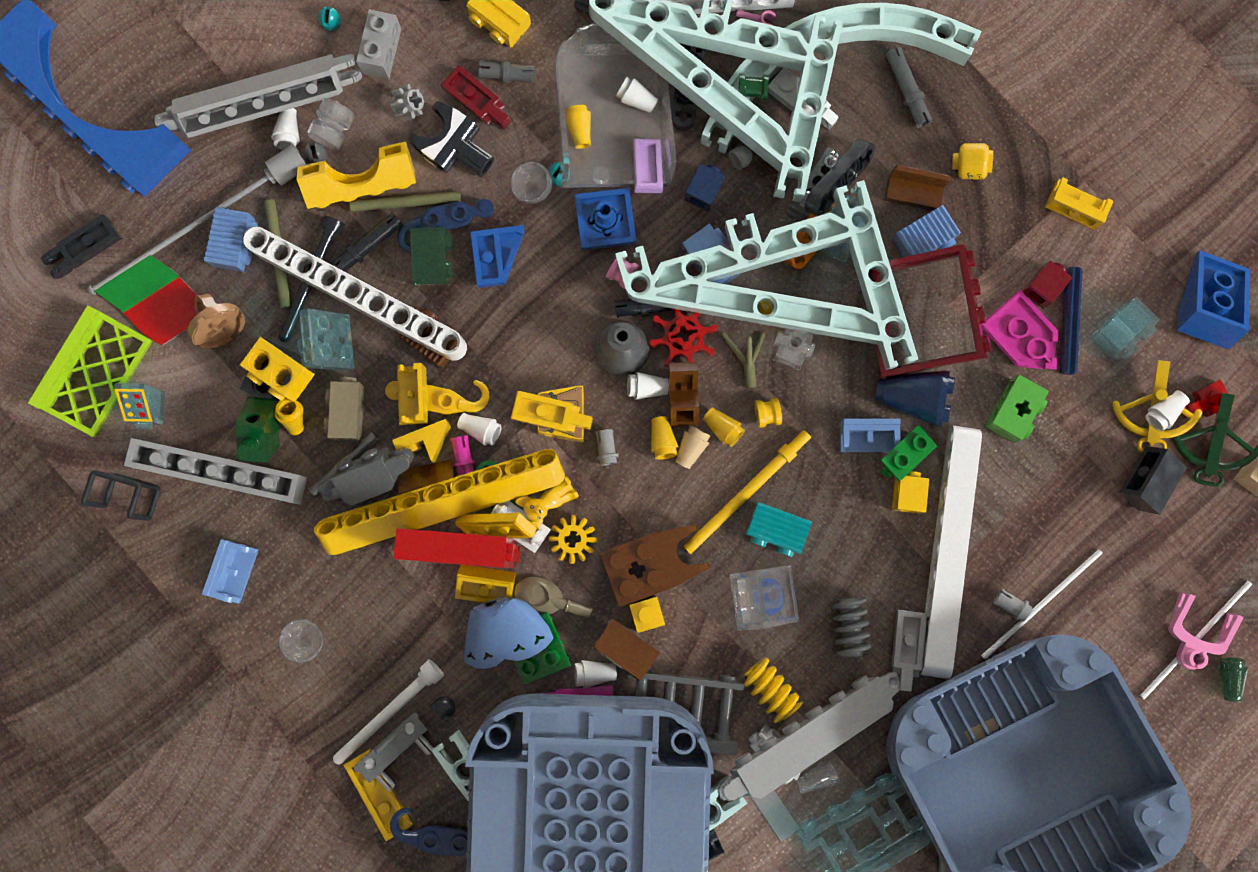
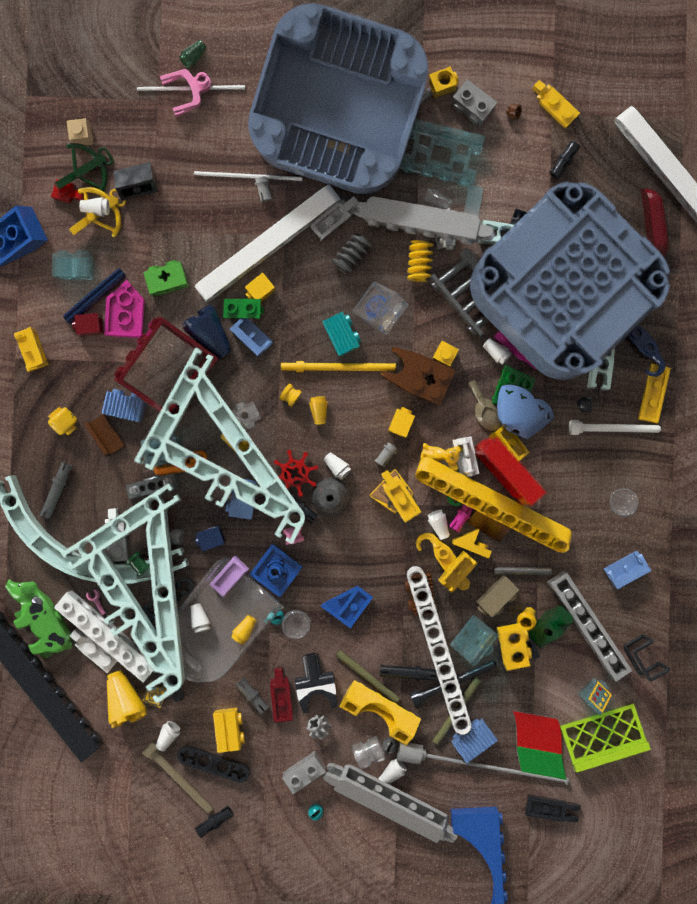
camera: 130 degrees left, 5 degrees up
(214, 322) = (521, 702): medium nougat tile -> none
(366, 476) = (517, 552): dark grey hinge -> none
(390, 748) = (628, 409): dark grey piece -> none
(431, 255) = (382, 634): clear green brick -> none
(449, 215) = (357, 648): dark blue piece -> none
(499, 524) = (478, 465): yellow tile -> none
(566, 532) = (445, 418): yellow gear -> none
(623, 496) = (401, 422): none -> yellow brick
(626, 650) = (471, 346): reddish brown panel -> none
(662, 439) = (354, 432): yellow cone -> none
(683, 394) = (323, 443): reddish brown brick -> none
(692, 446) = (343, 414): tan cone -> none
(748, 362) = (275, 429): olive plant -> none
(840, 175) = (139, 477): black beam -> none

